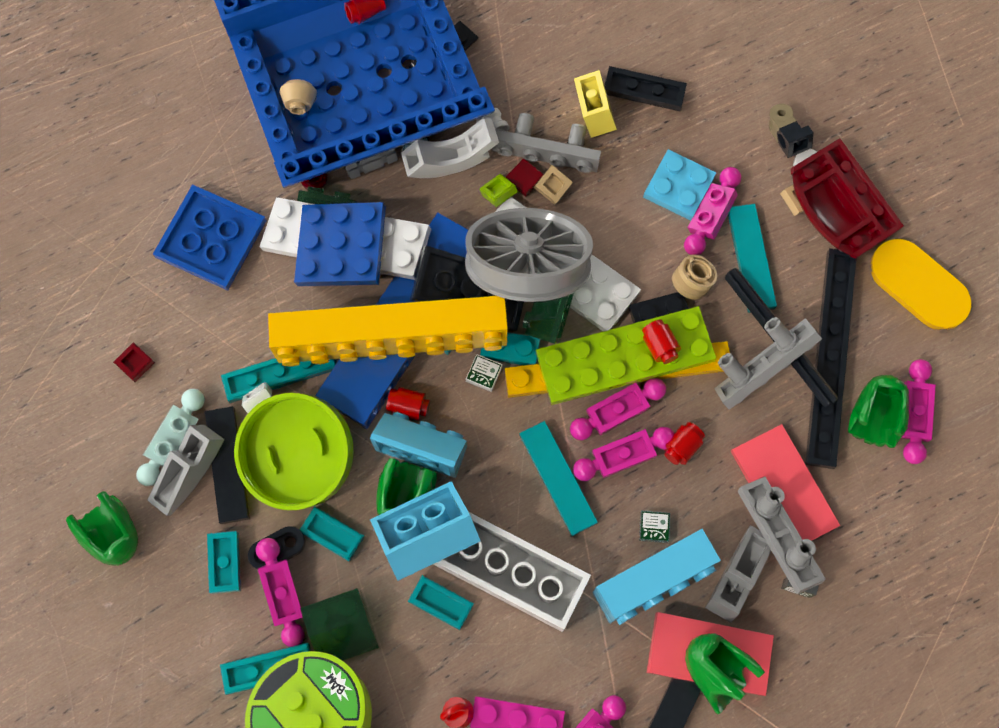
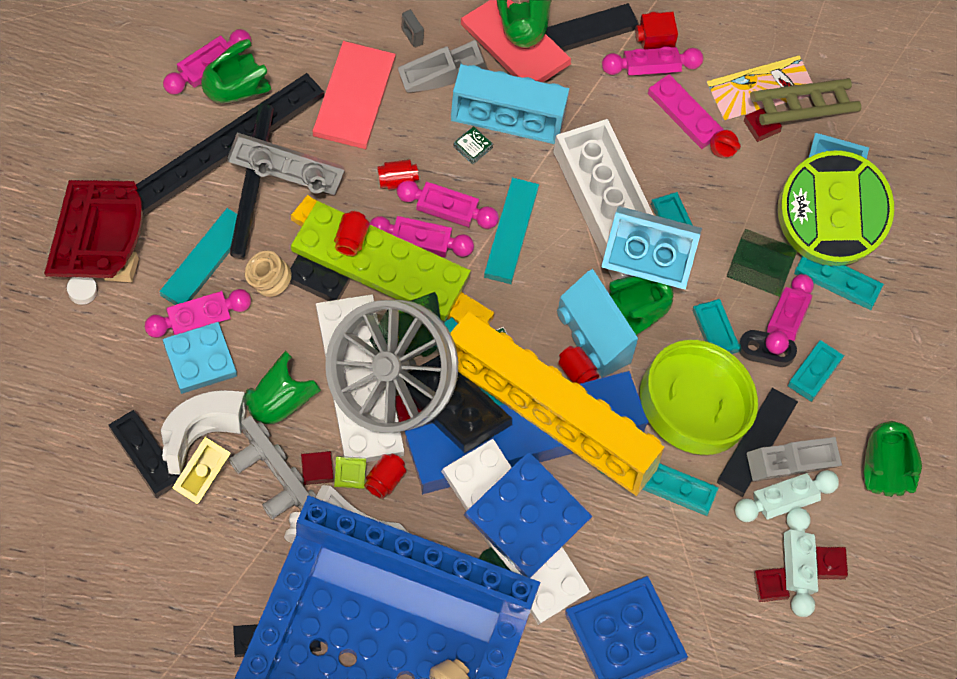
camera: 145 degrees left, 10 degrees down
(101, 415) = (831, 563): none -> dark red plate
(122, 393) = (800, 562): none -> light aqua plate
(256, 396) = (695, 462): white tile -> none
(471, 205) = (385, 475): none -> red brick
(553, 184) = (302, 438): tan plate -> none
(597, 197) = (278, 393): none -> green hair
(636, 128) = (196, 417): none -> white arch
(781, 535) = (395, 58): light grey plate -> none
(788, 132) = (73, 320): black leg -> none
(920, 284) = (103, 135): yellow tile -> none

